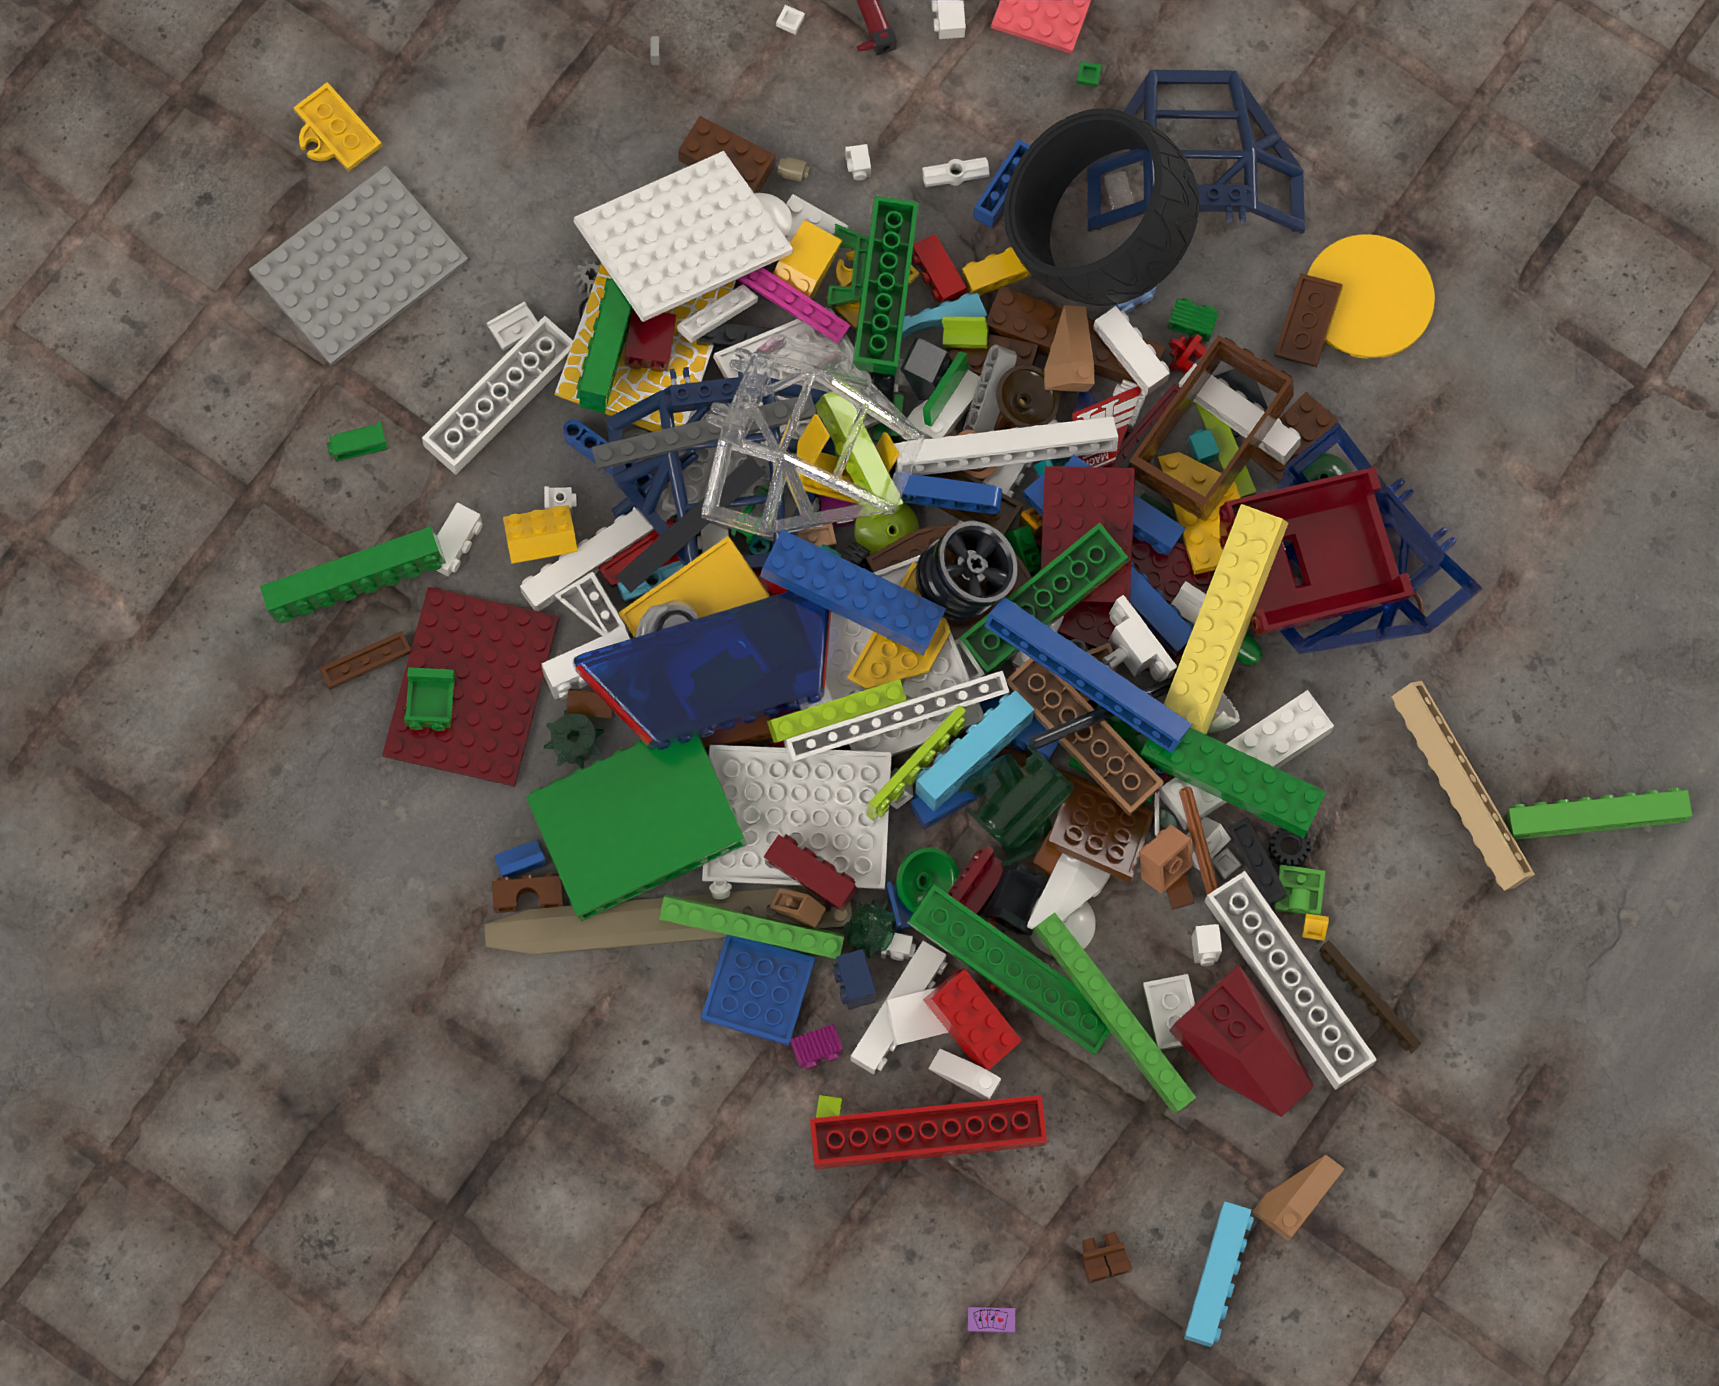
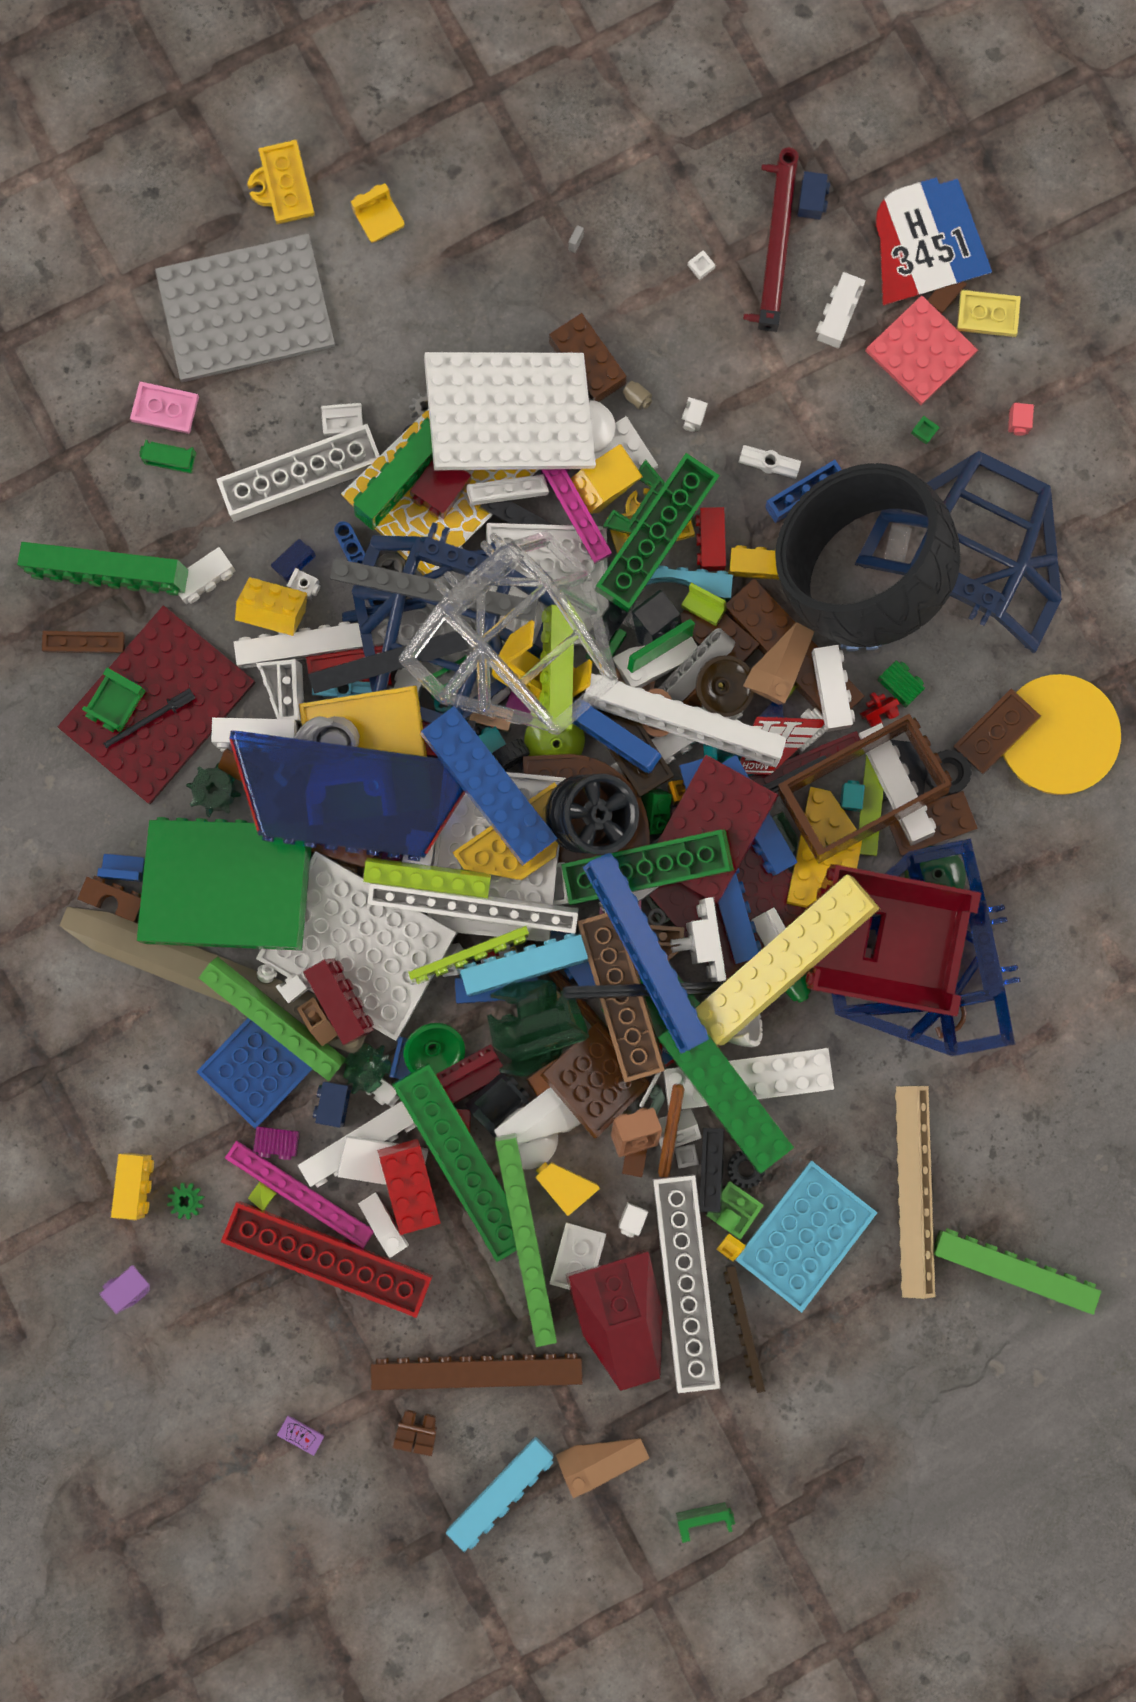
camera: 30 degrees right, 10 degrees up
(328, 397) = (164, 407): none -> bright pink plate
(445, 115) = (377, 213): none -> yellow bracket
(491, 673) = (173, 703): none -> black piece
(533, 483) = (296, 556): none -> clear blue panel
(697, 1156) = (132, 1186): none -> yellow brick
(750, 1246) = (125, 1290): none -> medium lavender wedge
(752, 1140) = (194, 1201): none -> green gear
(757, 884) = (294, 987): none -> white brick
(864, 1087) = (299, 1194): none -> dark pink tile
(1123, 945) = (565, 1186): none -> yellow slope
(1132, 1170) = (476, 1372): none -> reddish brown brick
(1174, 21) = (1021, 418): none -> coral brick
(1297, 372) = (962, 766): none -> black tyre
(1381, 881) = (806, 1236): none -> medium azure plate
(1411, 1209) = (703, 1516): none -> green panel

